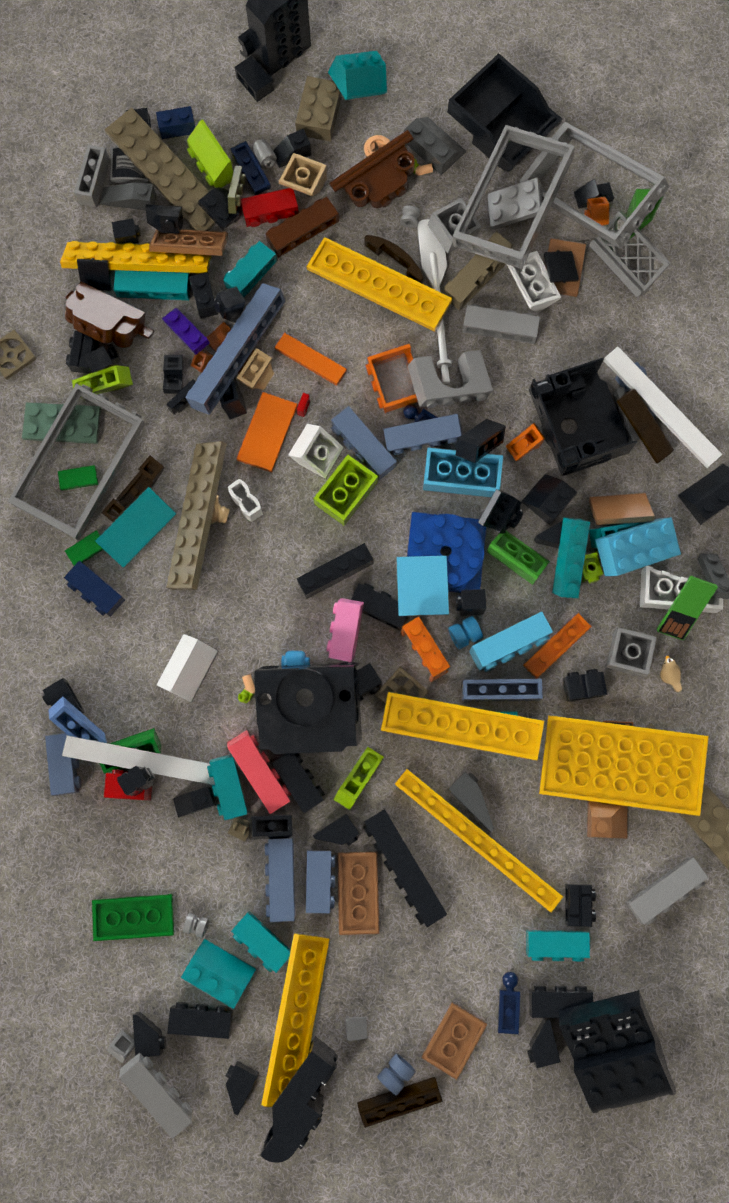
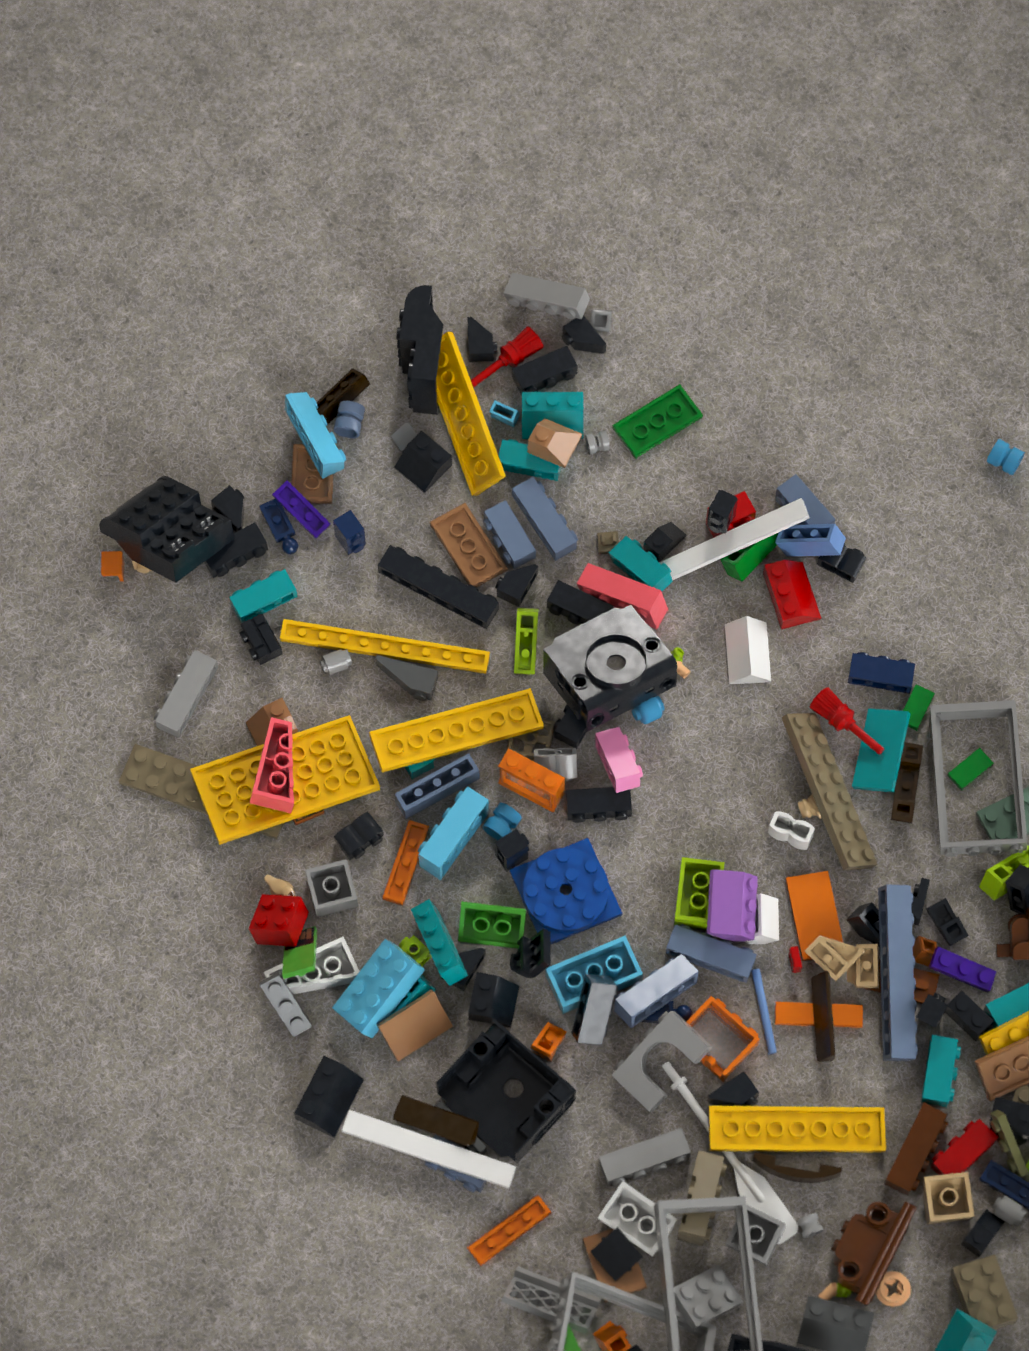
camera: 150 degrees right, 10 degrees down
(121, 696) = (791, 593): none -> red slope
(149, 568) = (841, 716): none -> red piece
(218, 1055) = (512, 353): none -> red piece
(233, 942) = (553, 442): none -> medium nougat slope
(254, 1003) = (506, 409): none -> medium azure piece
(270, 827) = (581, 552): black brick -> none
(274, 388) = (833, 955): none -> tan wing
(309, 349) = (823, 1017): none -> dark brown slope
(328, 460) = (732, 905): none -> medium lavender slope
(335, 571) = (662, 812): black brick -> none
(349, 383) = (764, 1013): none -> medium blue bar
(354, 993) = (423, 461): none -> black slope
(396, 656) = (560, 760): none -> light grey brick
(408, 332) = (736, 1092): none -> black slope
(422, 585) = (568, 840): medium azure piece -> none
(437, 1078) = (314, 434): none -> medium azure slope
(455, 958) = (349, 532): none -> dark blue brick
(484, 1008) = (301, 509): none -> dark purple plate
(526, 848) = (336, 661): none -> light grey brick
(627, 329) = (509, 1230): none -> orange tile
(635, 767) = (275, 772): none -> coral wedge
(675, 1049) = (112, 564): none -> orange panel
(689, 646) = (278, 920): none -> red brick

